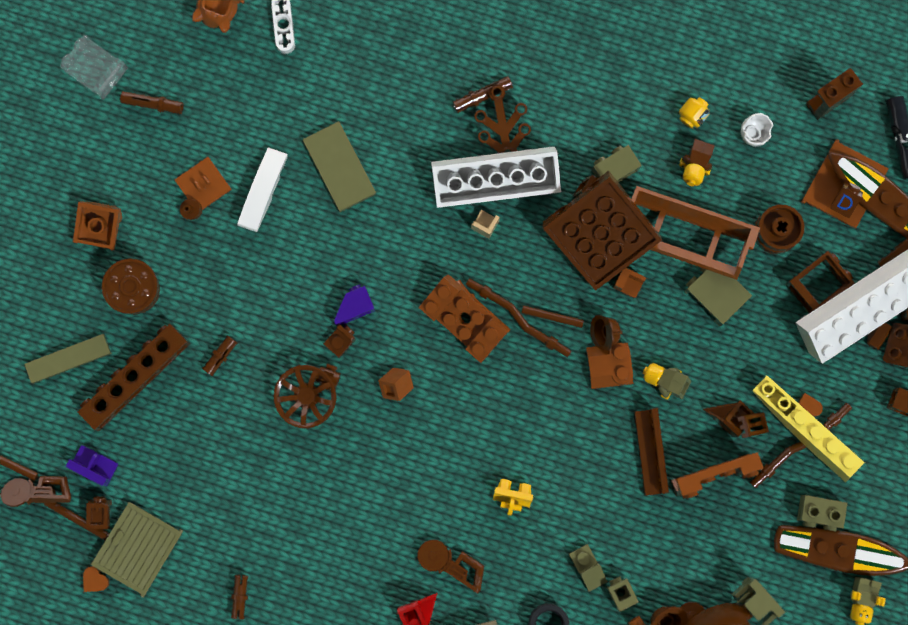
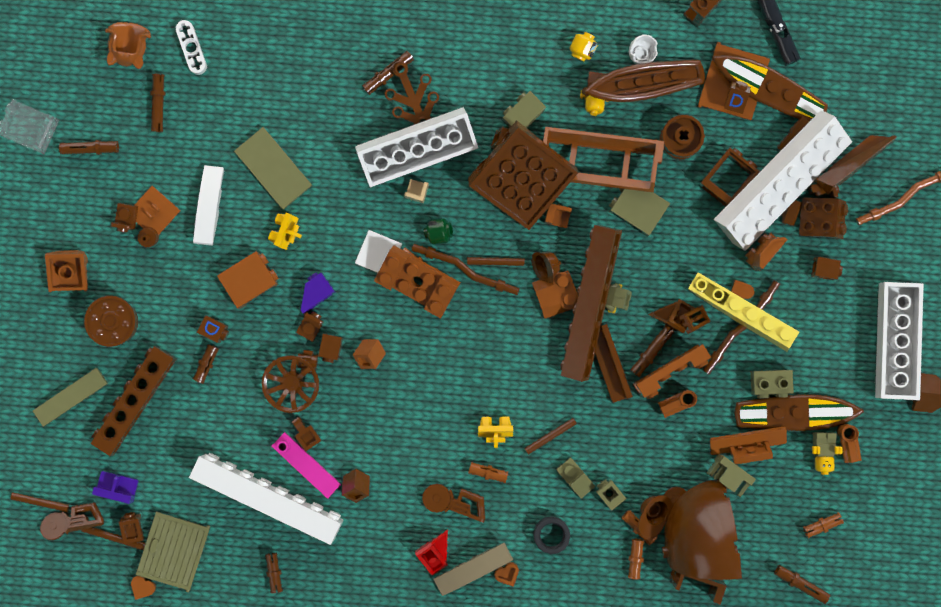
camera: 10 degrees left, 5 degrees up
(172, 183) = (125, 217): none -> reddish brown bracket
(236, 65) = (157, 102): none -> reddish brown pin
(236, 321) = (213, 329): none -> reddish brown brick
(250, 513) = (266, 498): none -> white brick
(286, 276) = (248, 279): none -> dark orange panel
(301, 488) = (306, 465): none -> dark pink piece
(309, 456) = (307, 435): none -> reddish brown plate
(338, 236) = (287, 231): none -> yellow hips
(349, 522) = (355, 485): none -> reddish brown panel
(356, 368) = (330, 348): none -> reddish brown brick
(426, 277) = (375, 250): none -> white sticker
(495, 540) = (488, 472): none -> dark orange pin
(499, 271) = (438, 231): none -> dark green head
(570, 516) = (550, 436): none -> reddish brown piece
(645, 382) = (591, 302): none -> reddish brown brick
(692, 455) = (647, 357): none -> reddish brown pin
(713, 511) = (675, 403): none -> dark orange piece
(754, 162) = (647, 80): none -> reddish brown piece
(783, 575) = (749, 445): none -> dark orange bracket
(843, 369) = (765, 251): none -> dark orange slope
(894, 599) = (849, 445): none -> dark orange piece

